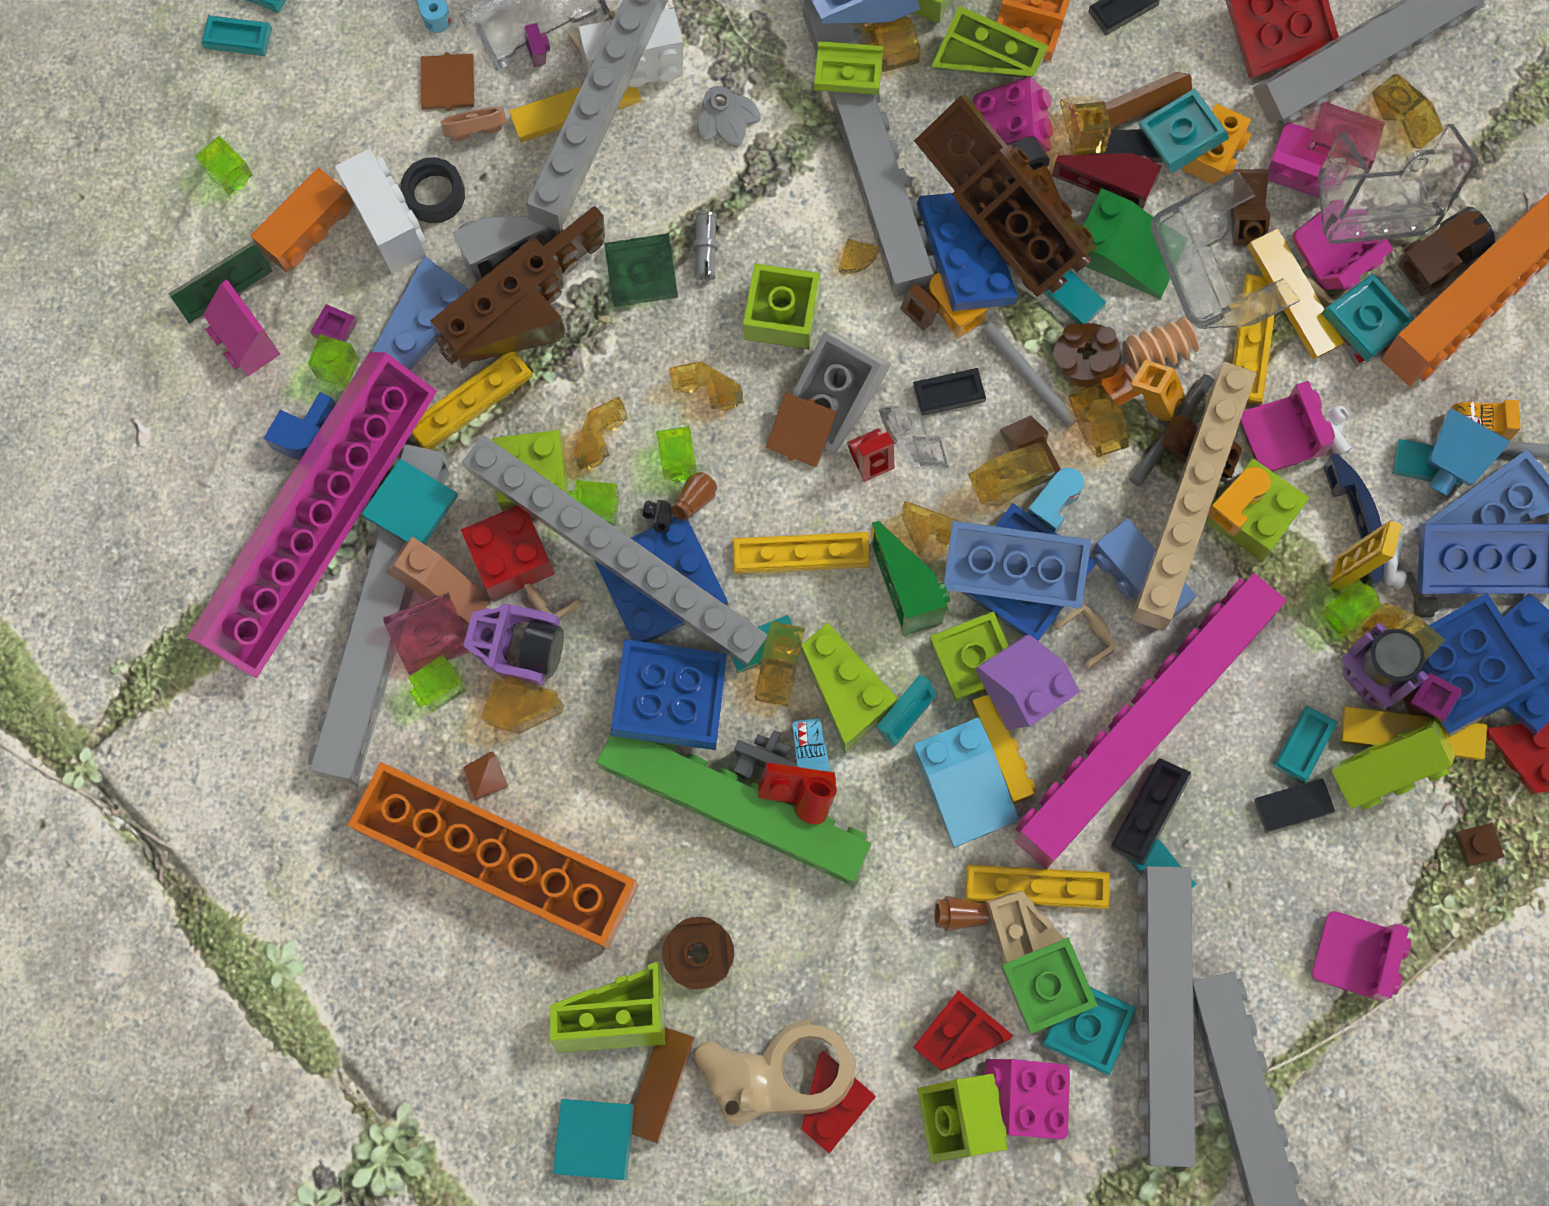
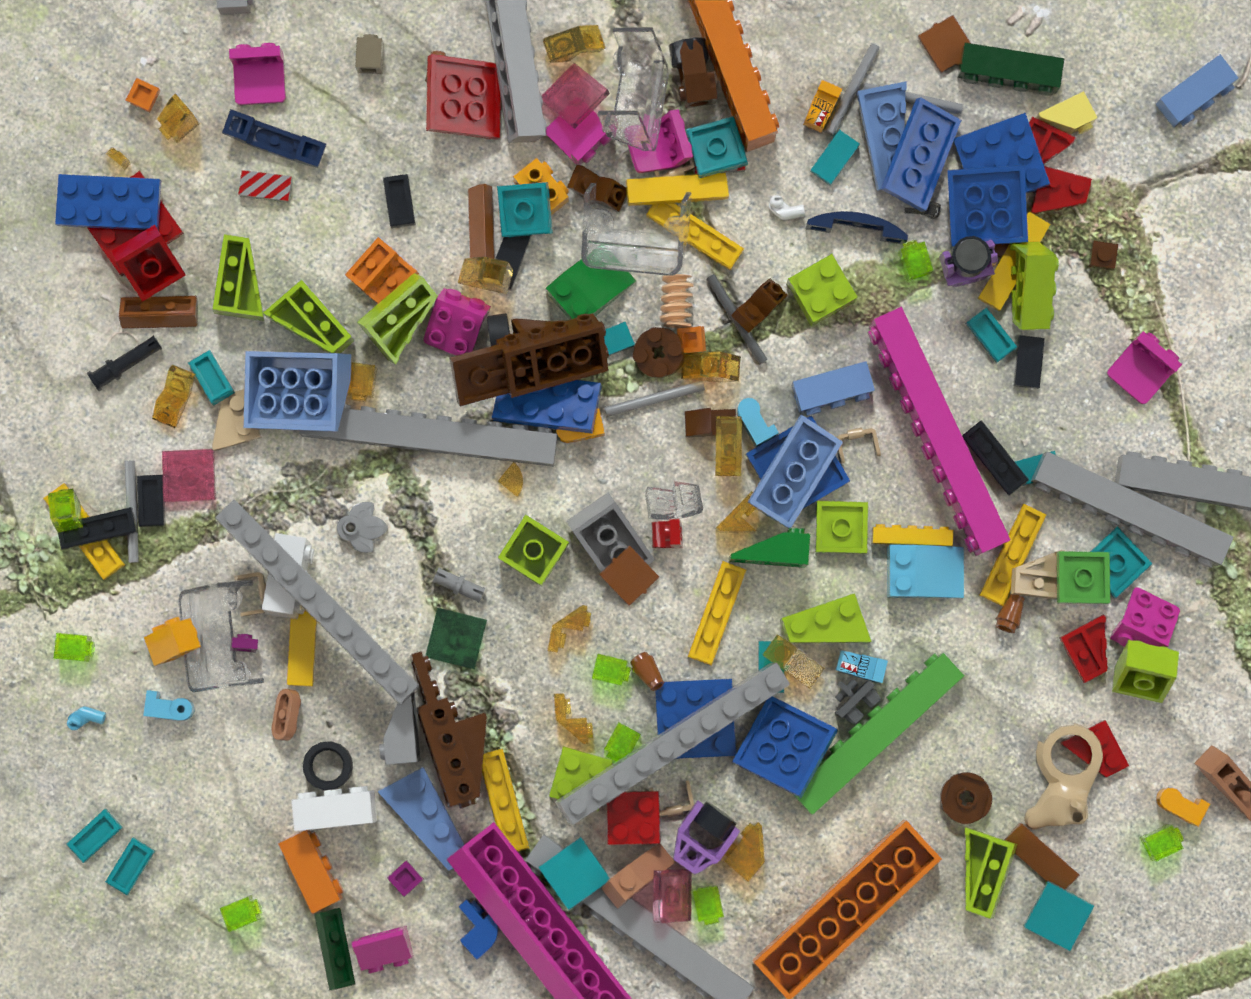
camera: 75 degrees left, 10 degrees up
(333, 361) = (434, 888): clear neon green brick -> none
(447, 81) = (239, 721): dark orange piece -> none
(485, 775) = (784, 894): dark orange slope -> none
(660, 513) = (649, 698): black arm -> none
(806, 788) = (893, 678): red plate -> none
(848, 68) = (374, 425): lime plate -> none
(907, 710) = (861, 589): teal tile -> none
(920, 306) = (573, 452): reddish brown plate -> none
(949, 391) = (643, 459): black tile -> none
(1026, 682) = (879, 501): medium lavender slope -> none
(1120, 174) = (537, 267): dark red slope -> none
(1159, 388) = (709, 317): light orange leg -> none
(1193, 497) = (800, 331): tan brick -> none
(1245, 490) = (816, 303): light orange leg -> none
(1288, 429) = (772, 243): dark pink bracket -> none
(1365, 555) = (893, 240): yellow tile -> none
(1390, 574) = (900, 221): white arm -> none
(1397, 618) = (947, 235): clear yellow slope -> none
(1436, 697) = (1003, 238): magenta plate -> none
(1462, 451) = (843, 136): dark azure torso -> none

